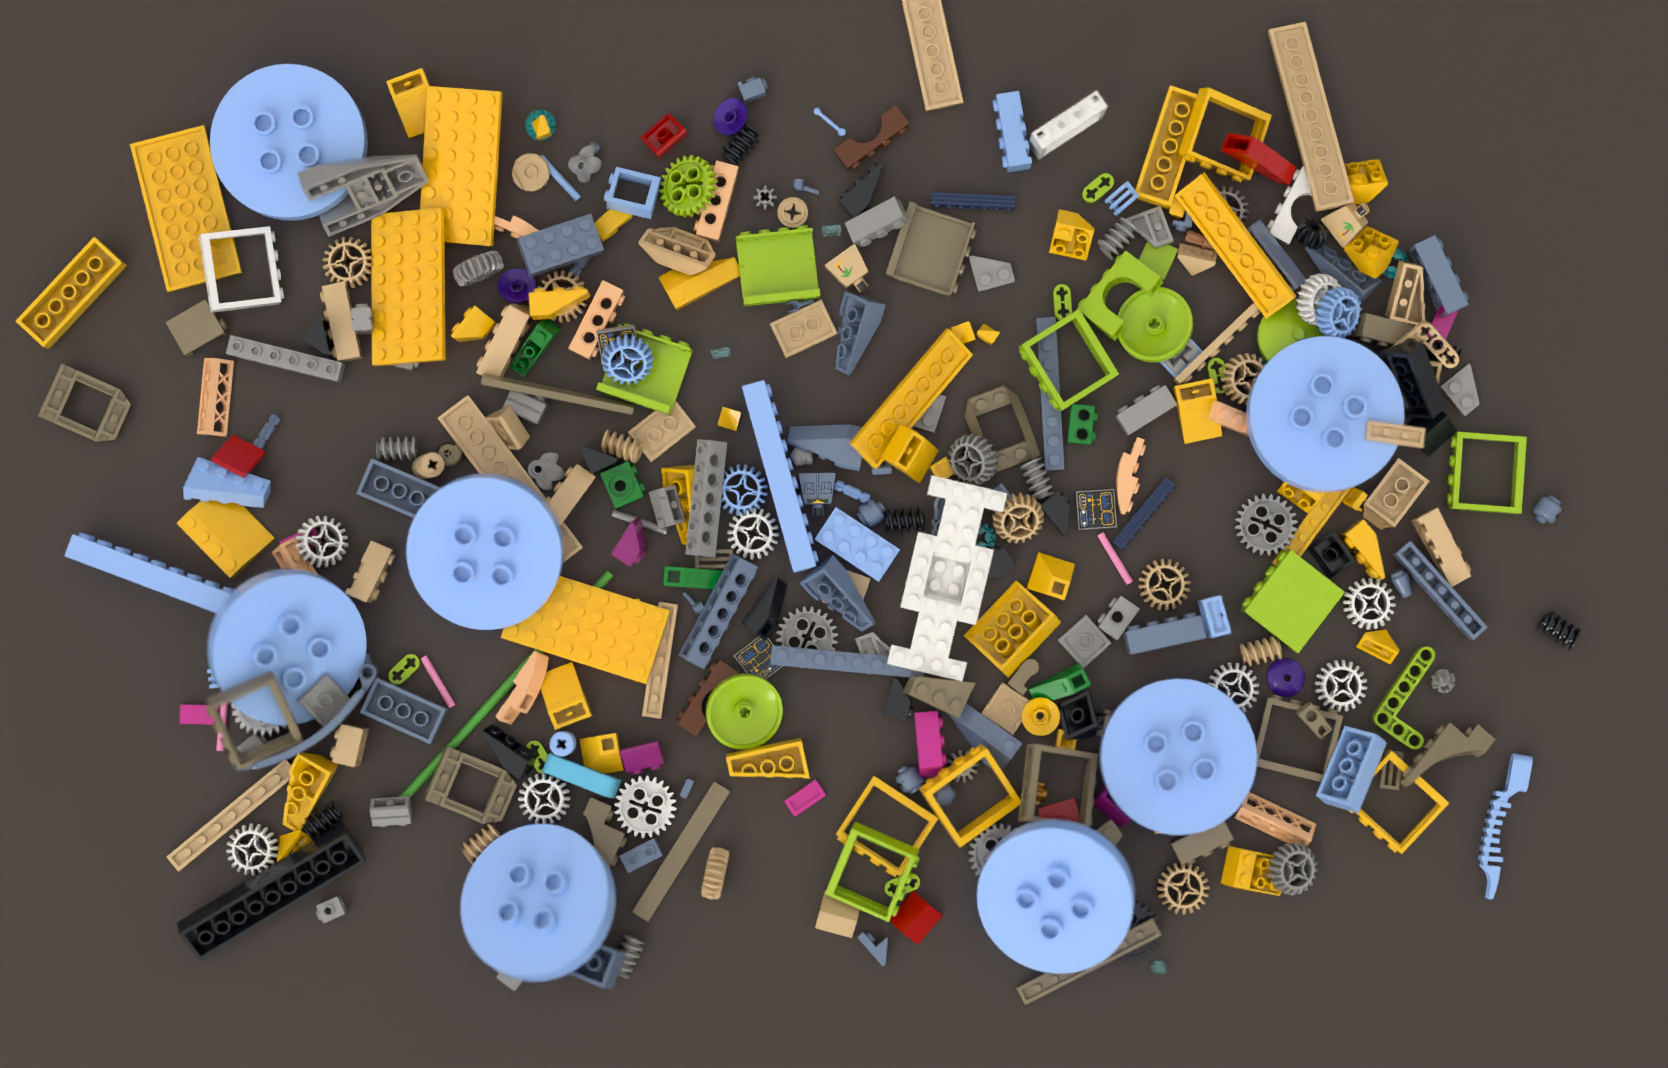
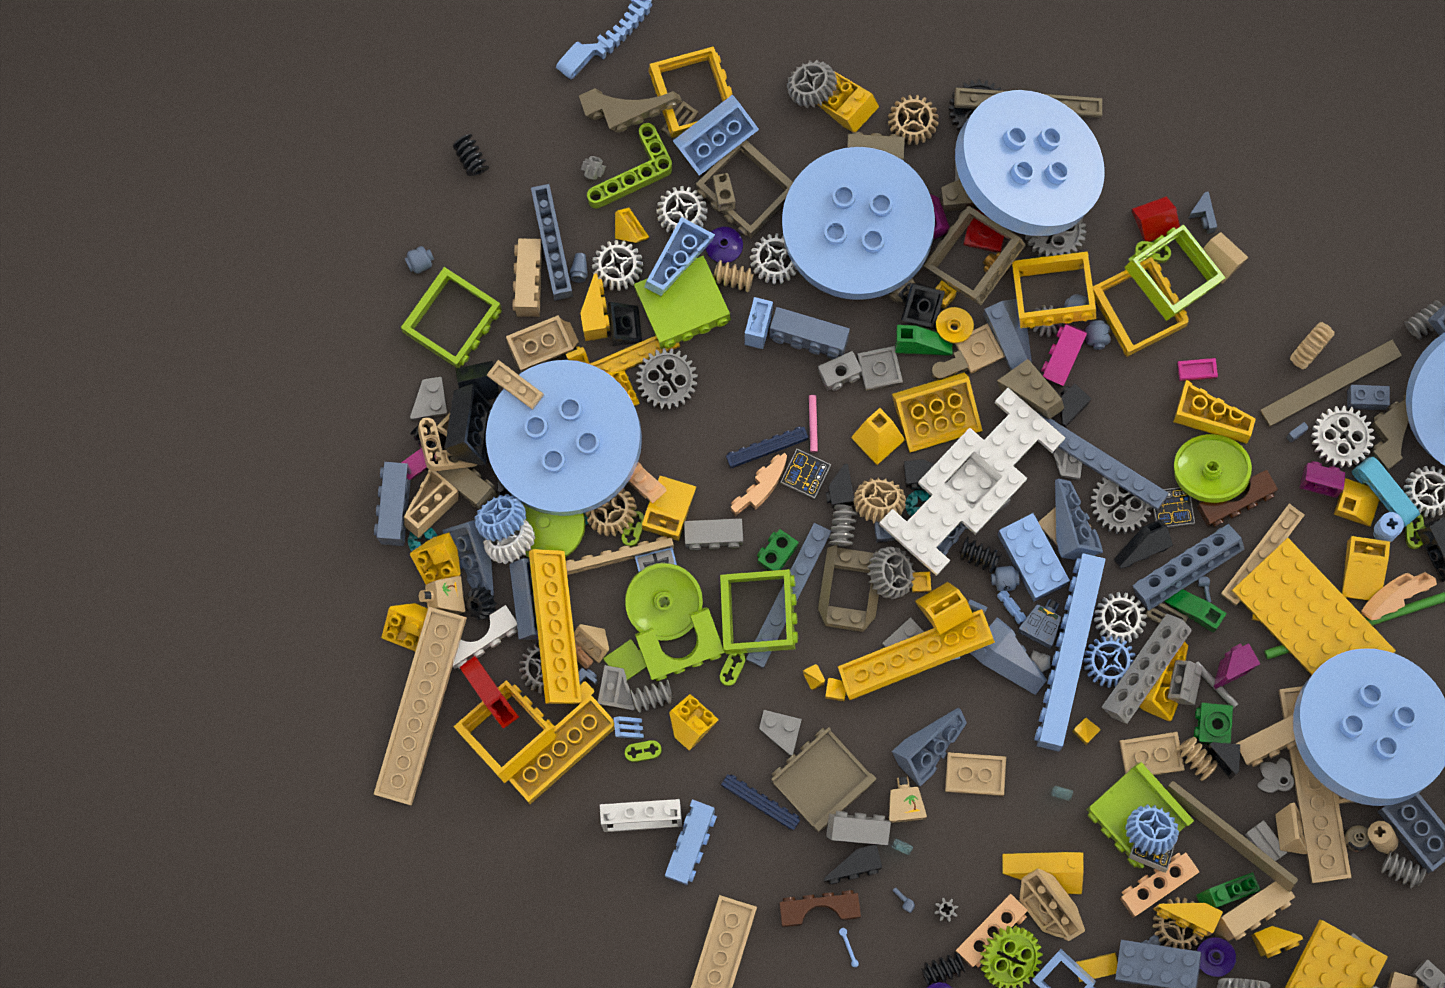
camera: 155 degrees left, 10 degrees down
(777, 266) = (969, 841): lime panel -> none
(787, 205) = (937, 882): tan gear -> none
(796, 305) = (970, 797): sand blue hand -> none
(1158, 967) = (970, 67): clear light blue plate -> none
(1168, 593) = (777, 377): tan gear -> none
(1275, 824) = (803, 124): light nougat fence -> none
(1320, 641) = (680, 251): none -> light blue wedge

